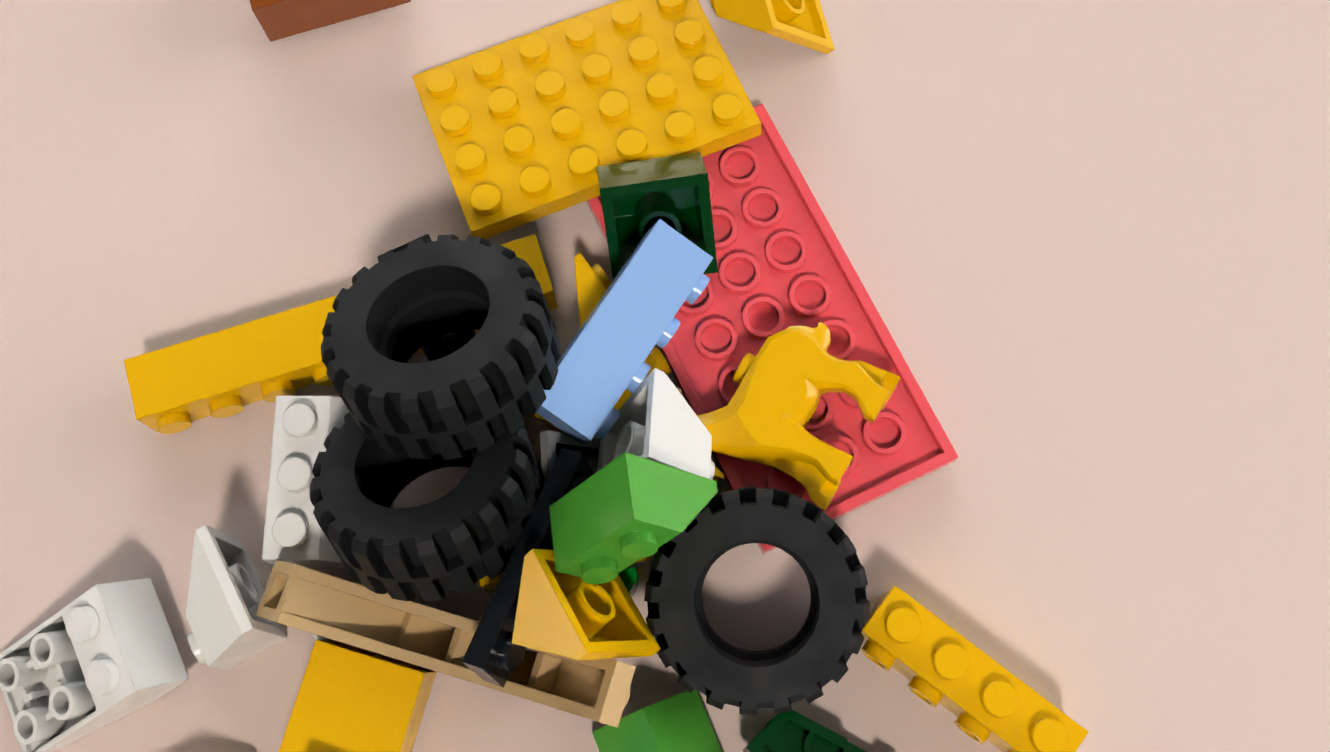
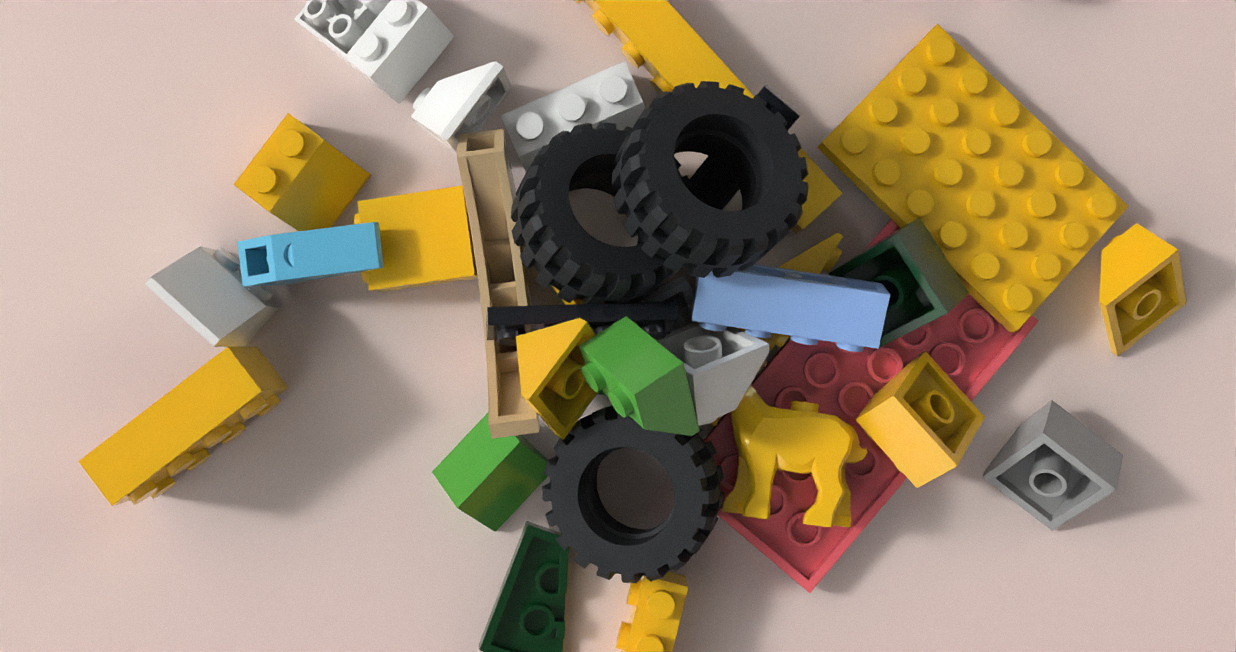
camera: 65 degrees right, 15 degrees up
(815, 257) = (921, 420): none -> yellow slope
(923, 151) = (1055, 466): none -> light grey slope

